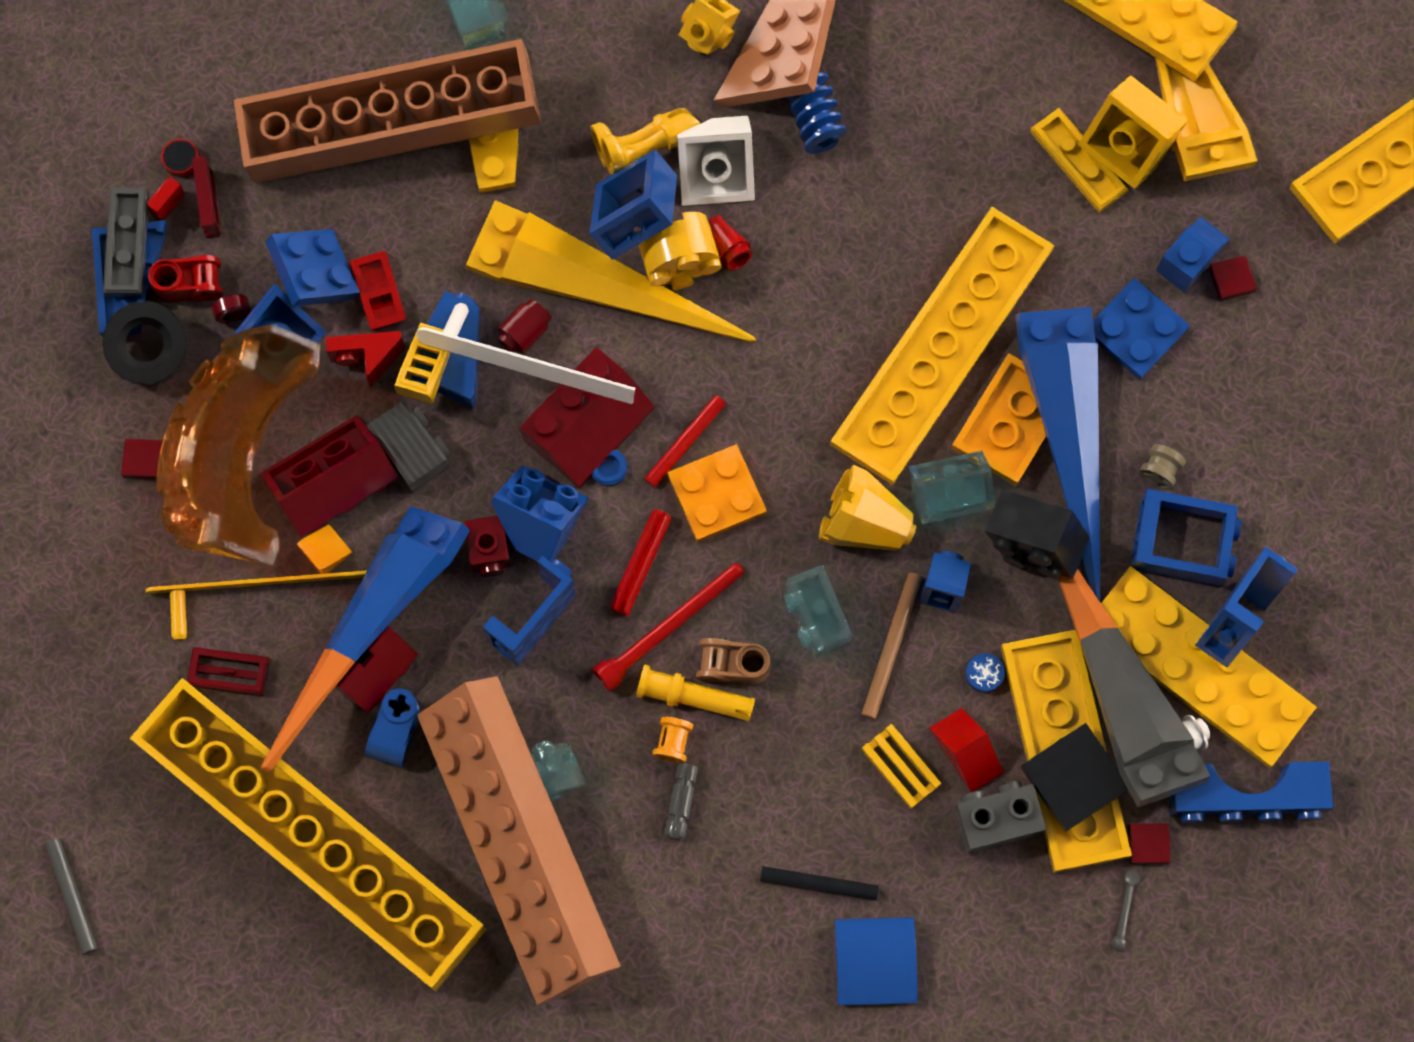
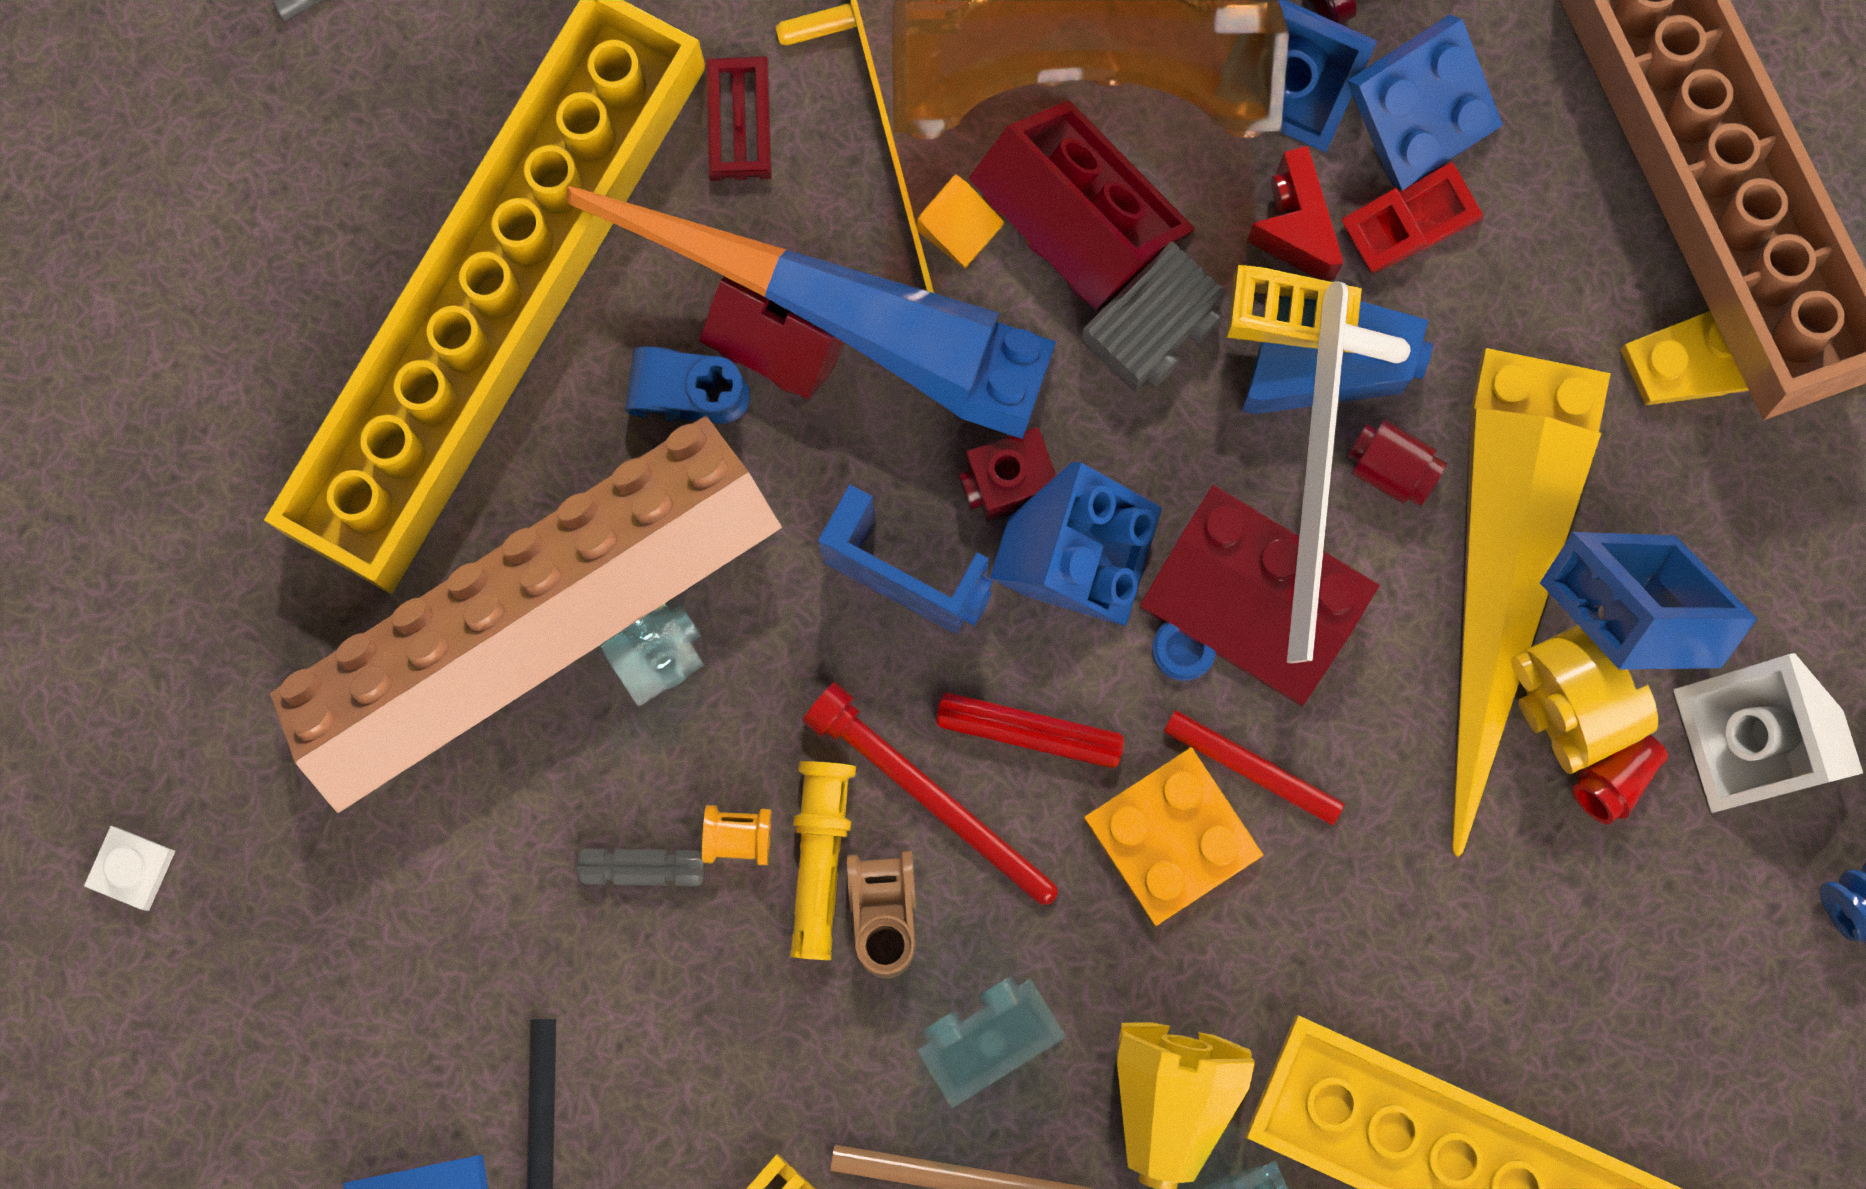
camera: 85 degrees right, 5 degrees up
(662, 132) = (1749, 571): yellow piece -> none

